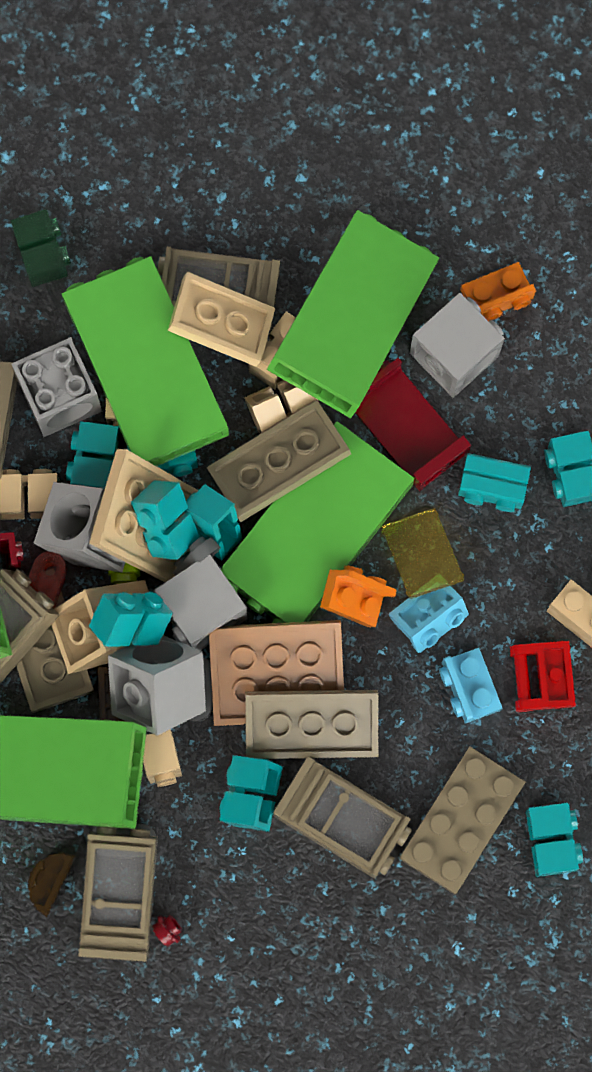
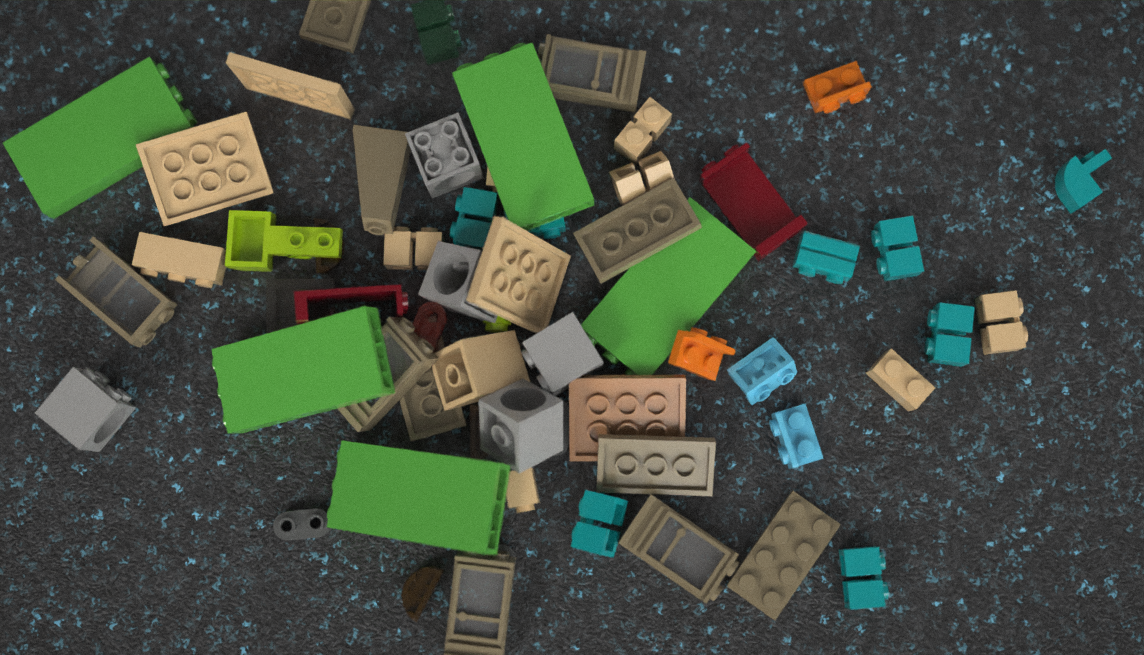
camera: 10 degrees right, 5 degrees up
(126, 614) = (500, 368): teal piece -> none
(156, 511) = (527, 273): teal piece -> none
(167, 930) = (521, 639): dark red plate -> none
(199, 550) = (563, 309): dark grey plate -> none
(215, 518) = (576, 282): teal piece -> none
(221, 319) = (592, 101): tan plate -> none
(353, 314) = (709, 102): bright green brick -> none
(422, 553) = (759, 317): clear yellow piece -> none
(457, 344) = (799, 132): light grey brick -> none
(553, 674) = (870, 431): red plate -> none

